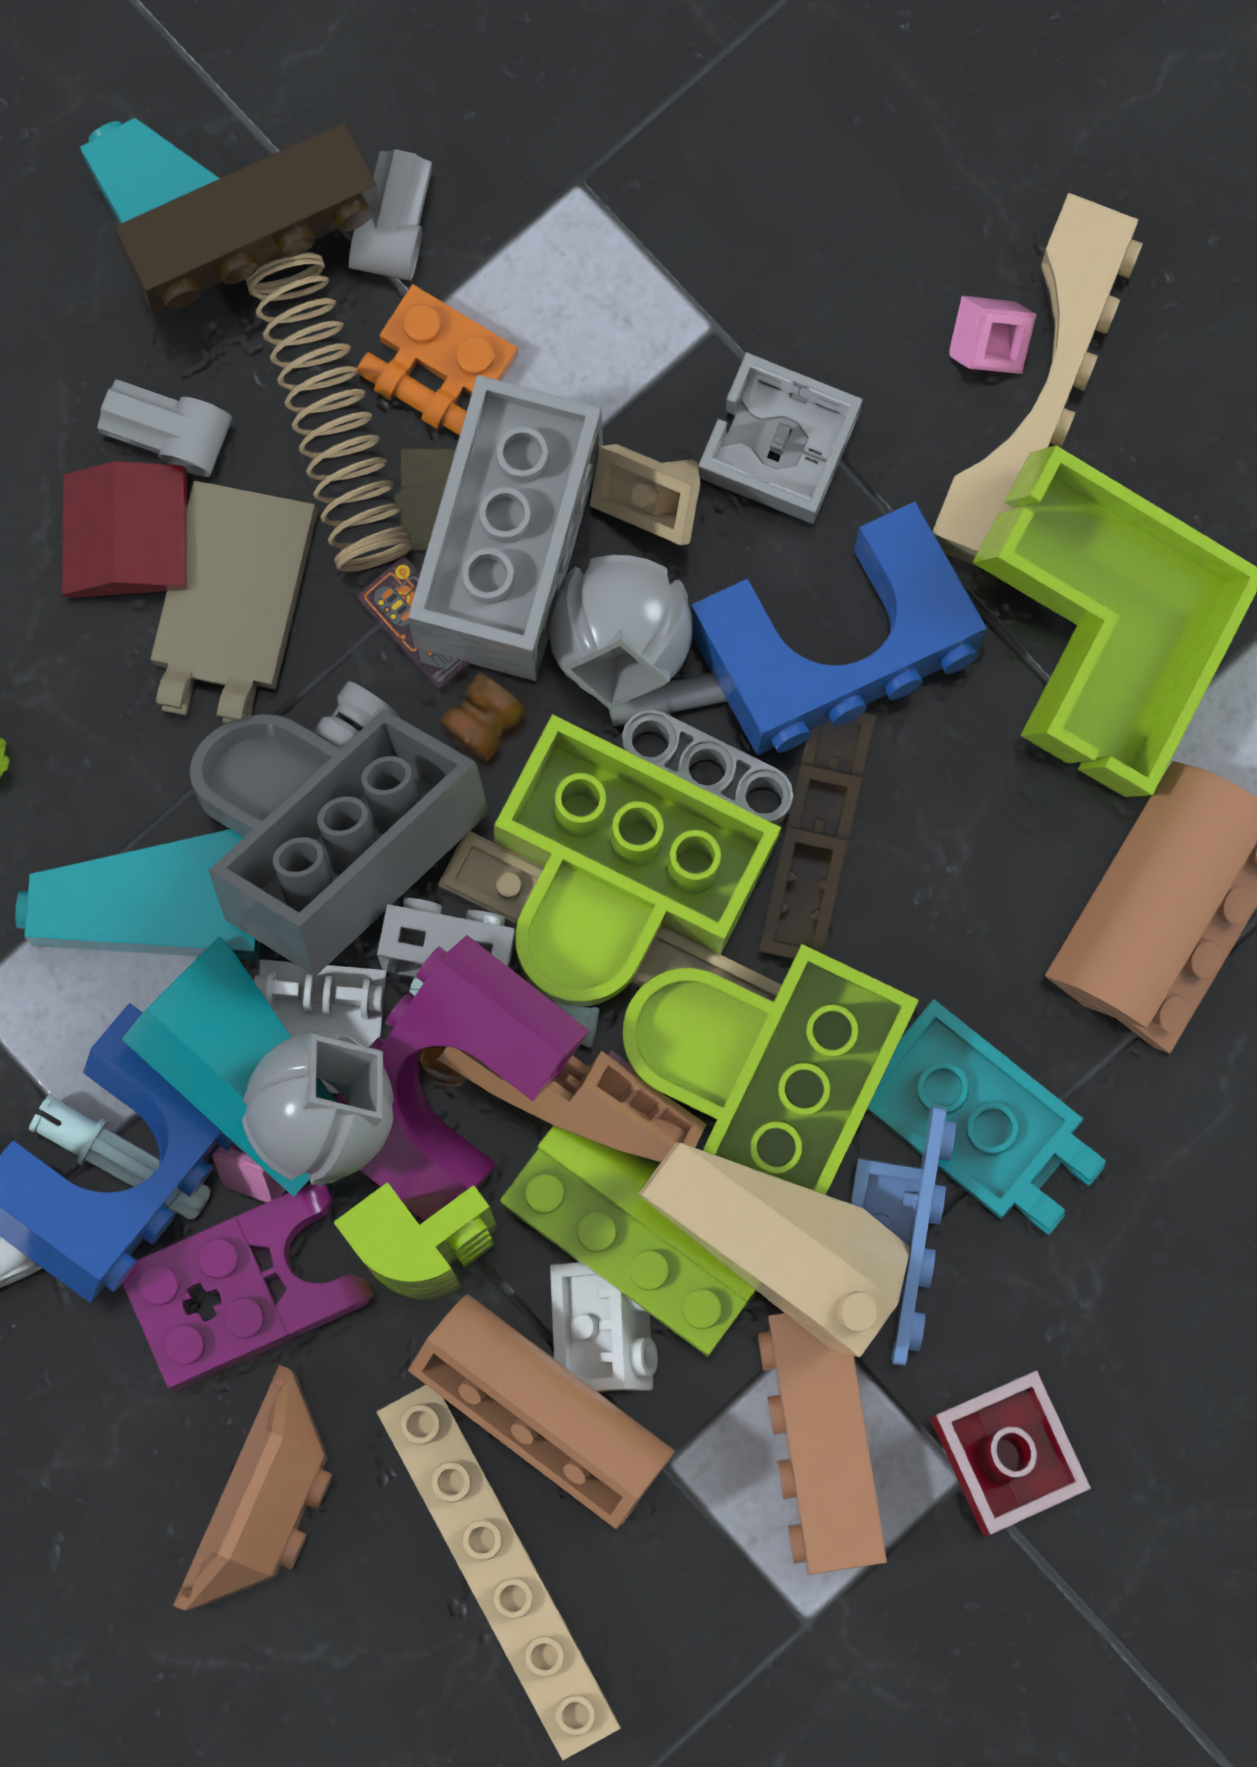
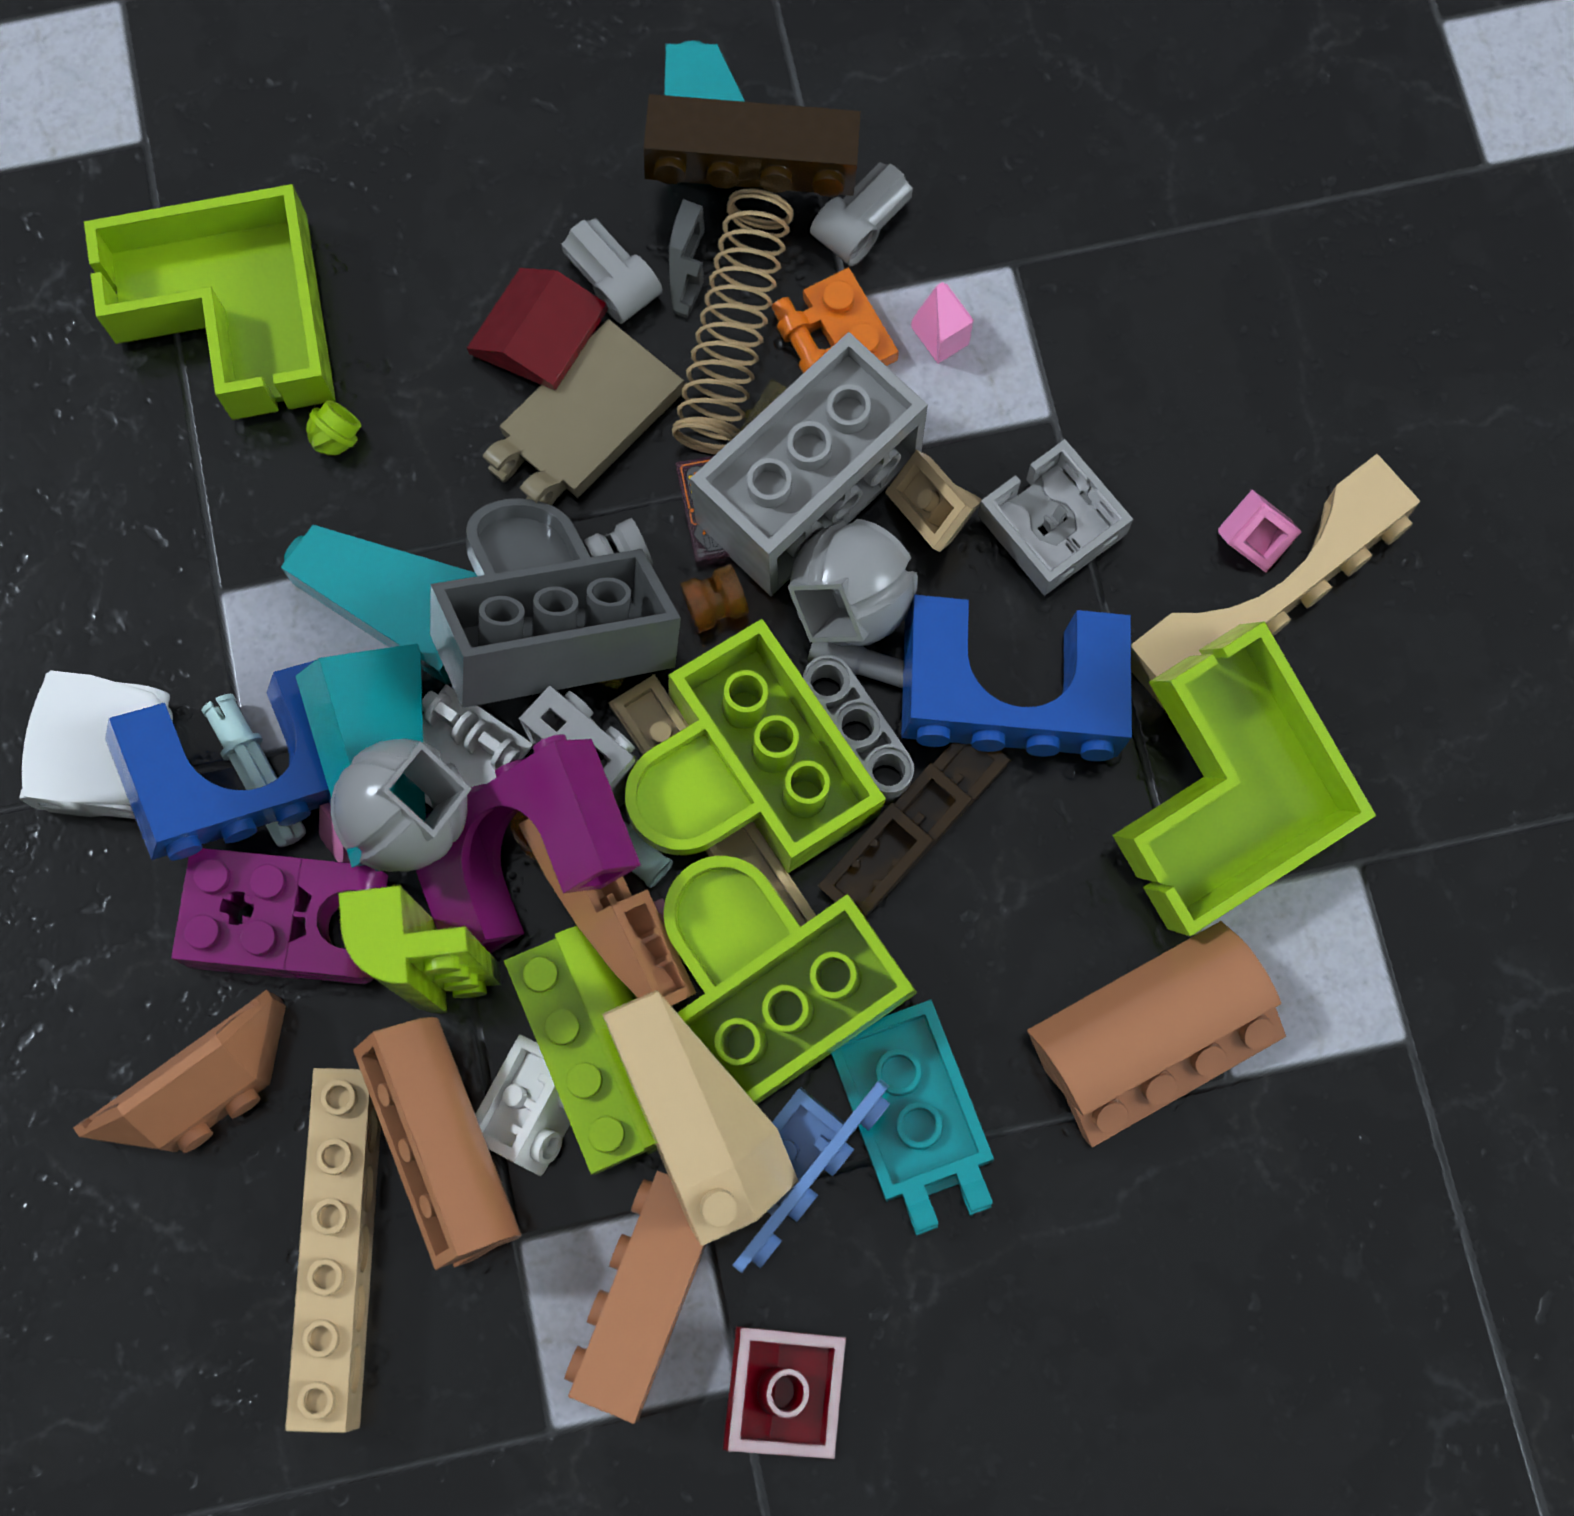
camera: 30 degrees right, 5 degrees down
(244, 387) = (684, 272): none -> dark grey slope
(546, 292) = (942, 323): none -> bright pink slope

